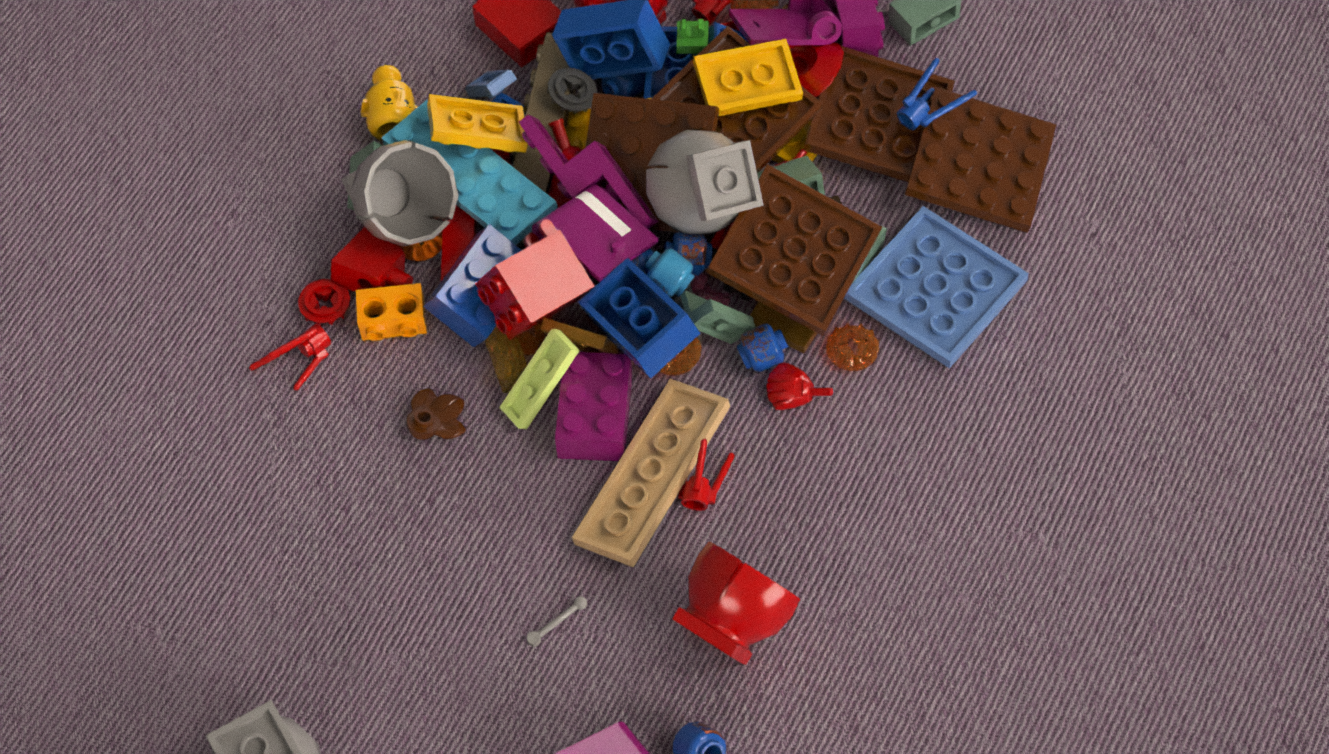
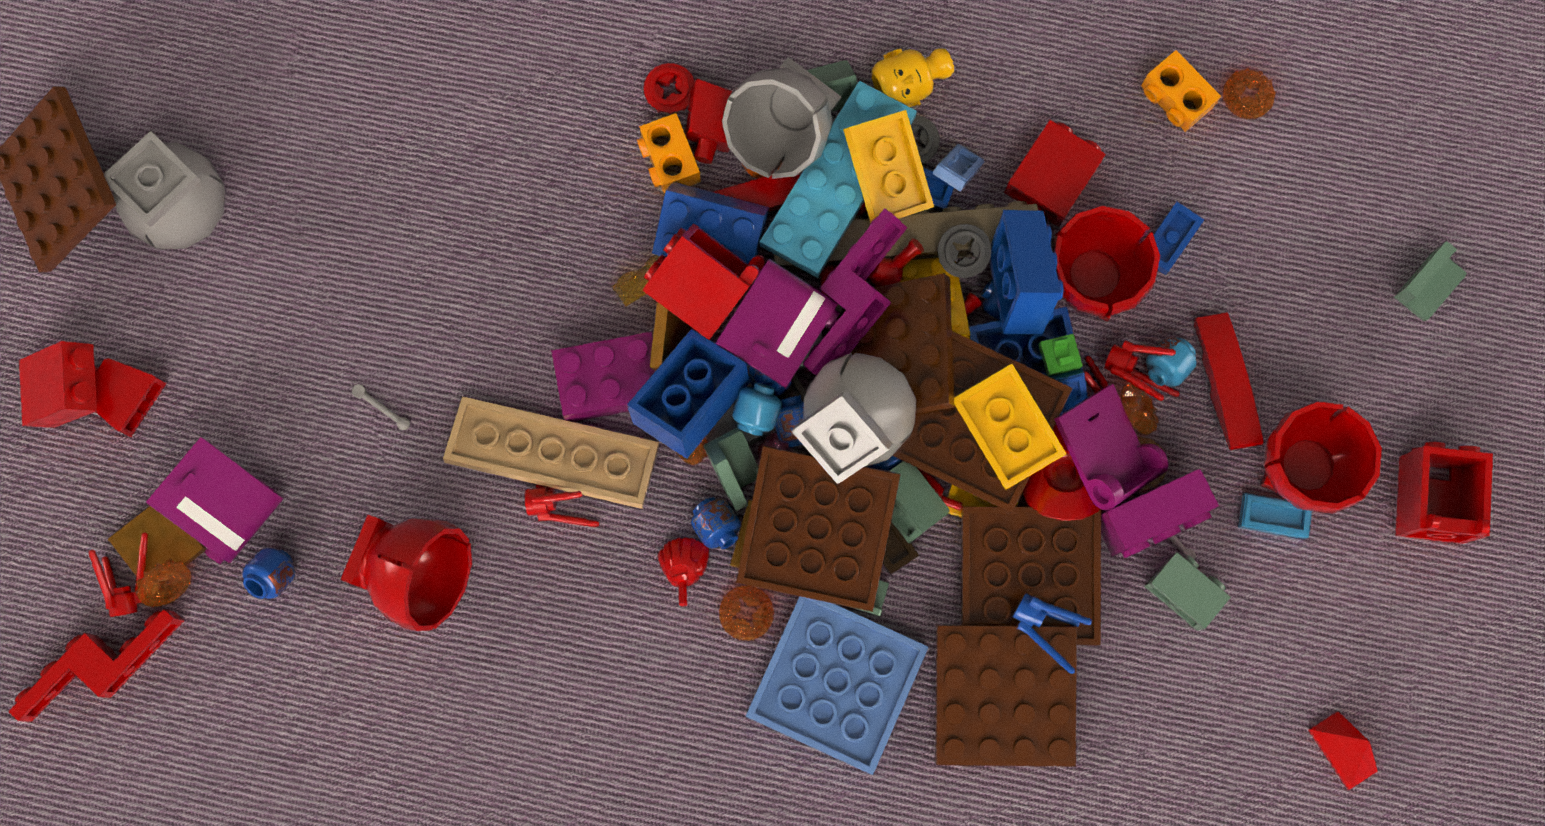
camera: 70 degrees right, 20 degrees up
(309, 343) = (619, 88): red plant -> none
(435, 415) = (574, 234): reddish brown plate -> none
(539, 379) = (615, 317): yellowish green plate -> none

